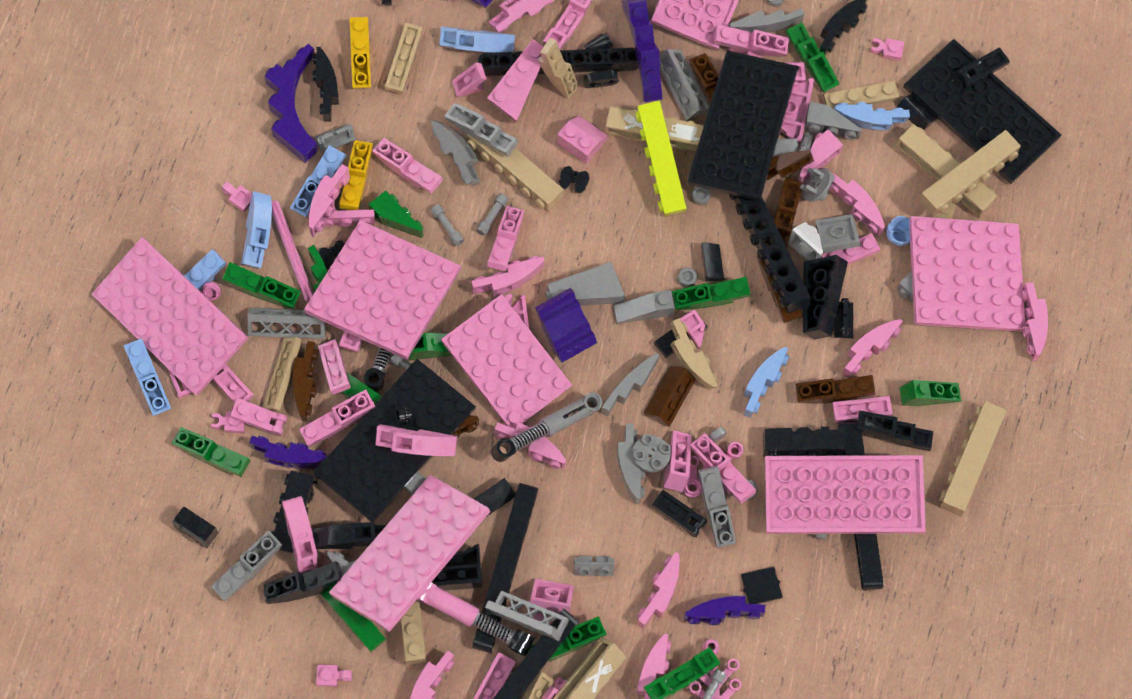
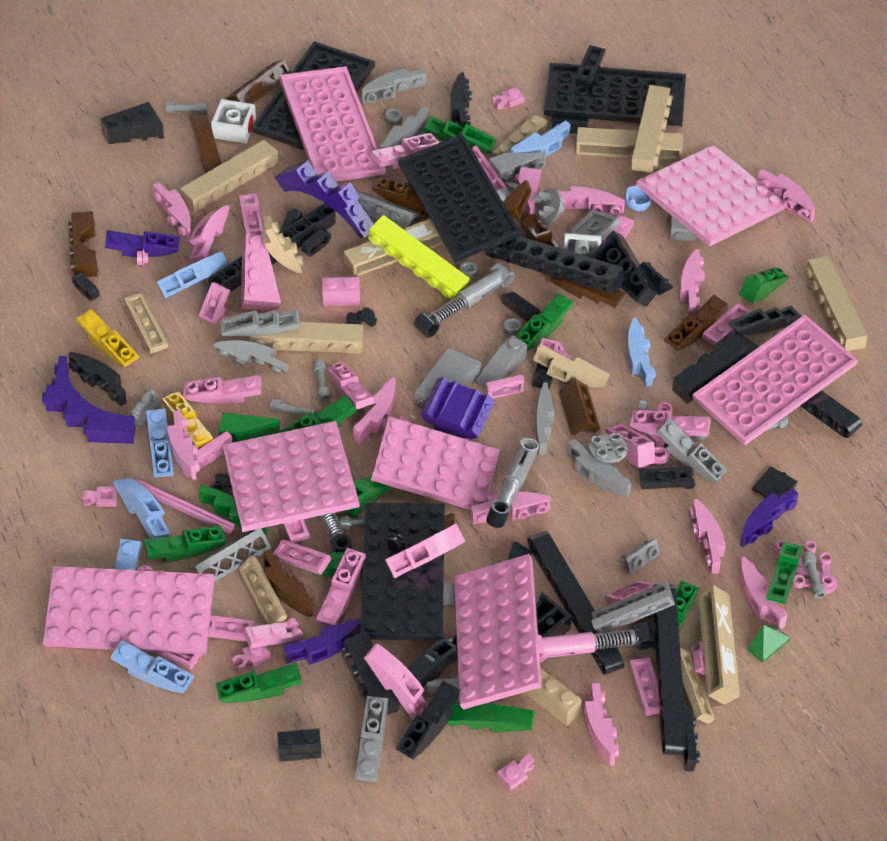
camera: 35 degrees left, 20 degrees down
(461, 254) = (335, 411): none -> green slope
(627, 331) = (505, 386): none -> bright pink tile
(715, 222) = (497, 277): none -> piece

